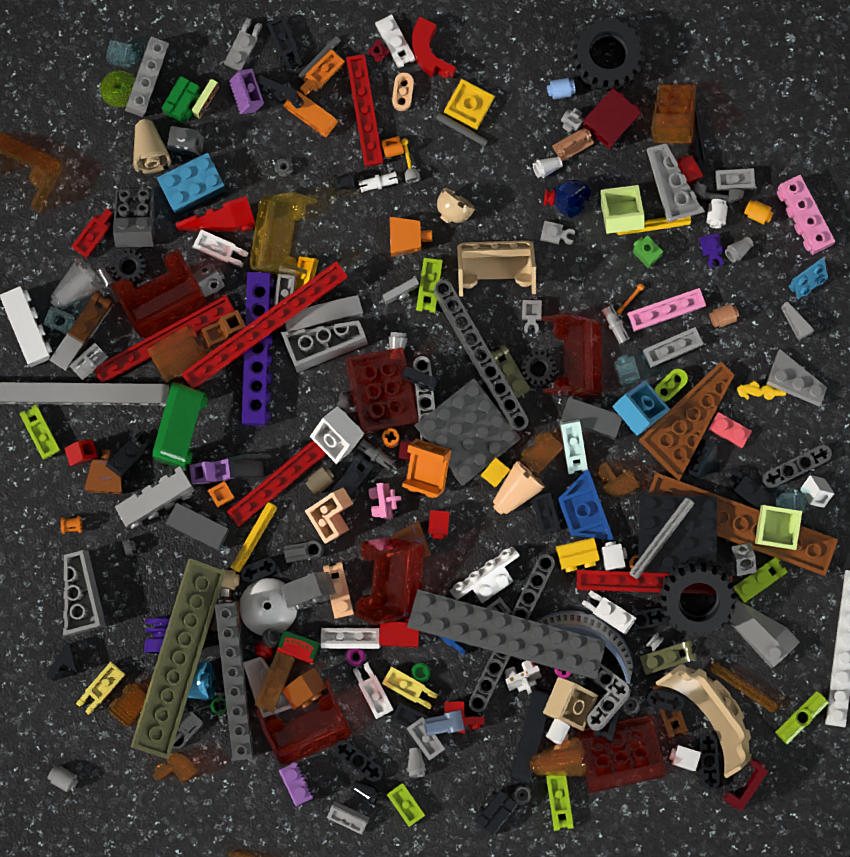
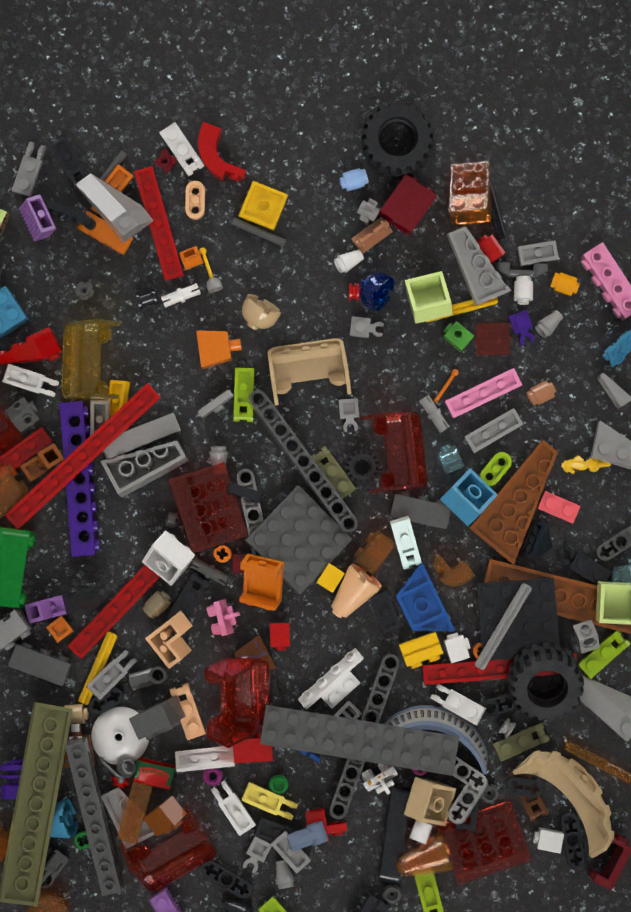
camera: 10 degrees left, 5 degrees up
(246, 629) = (101, 761): none -> dark grey hinge
(265, 545) = (110, 676): none -> light grey hinge
(326, 92) = (116, 209): none -> light grey wedge
(393, 736) = (258, 851): none -> light grey plate
(681, 258) = (492, 339): none -> clear red piece

